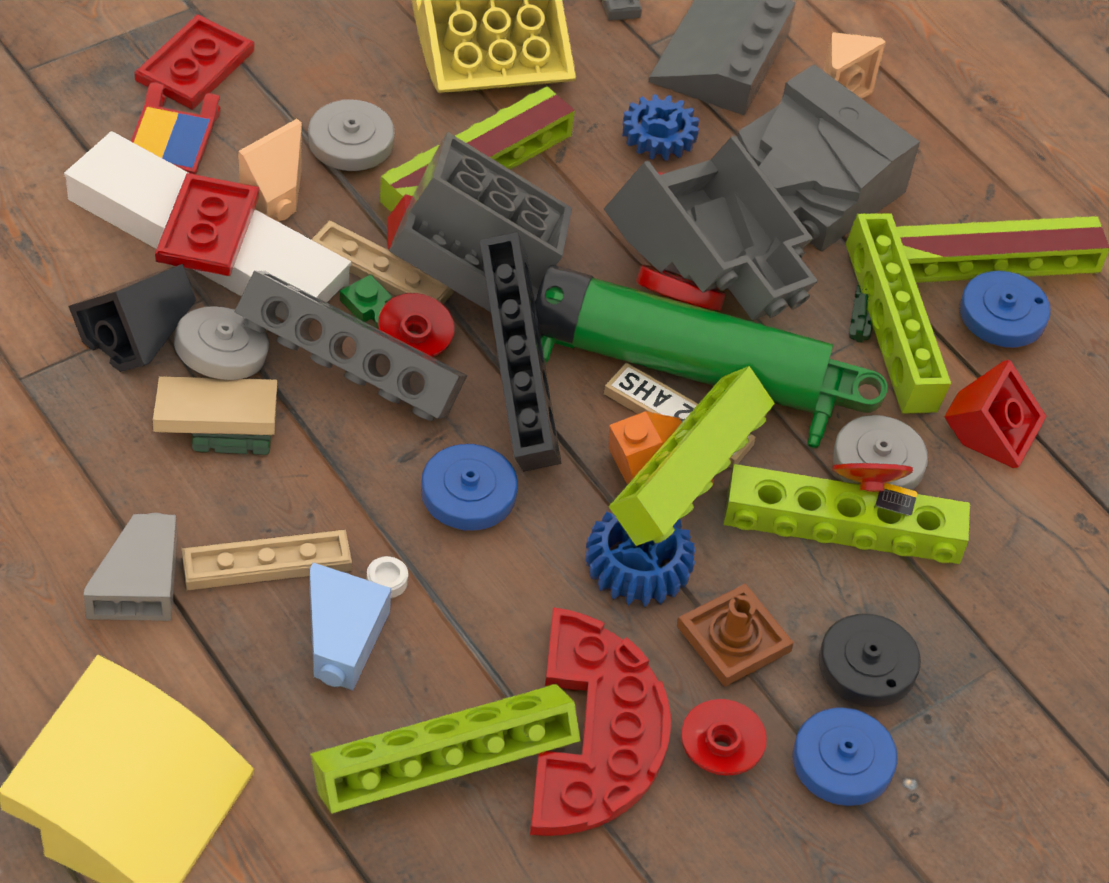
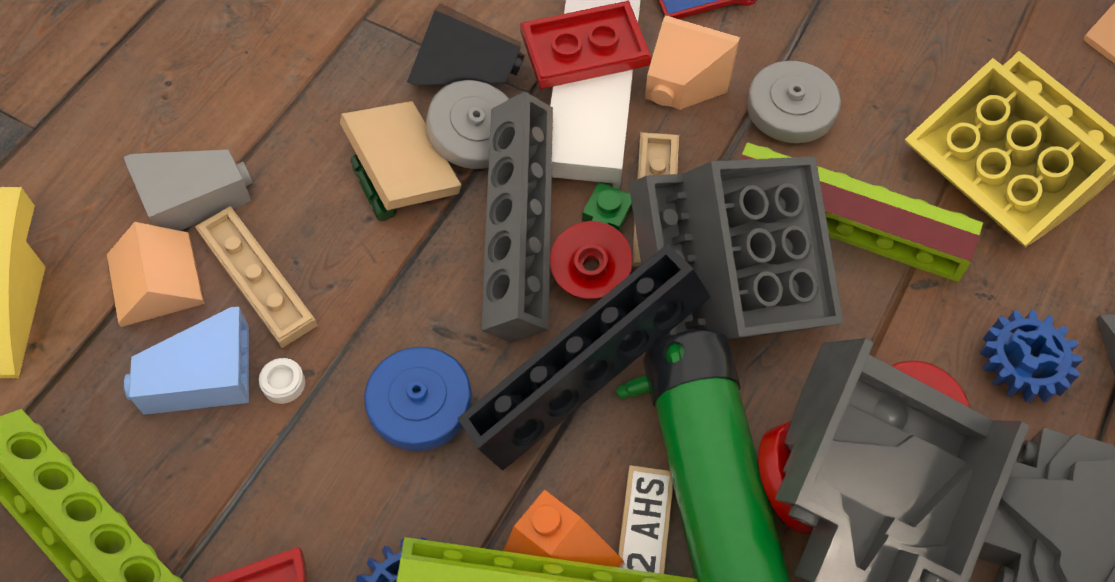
camera: 70 degrees right, 10 degrees up
(214, 636) = (153, 273): none -> light nougat slope

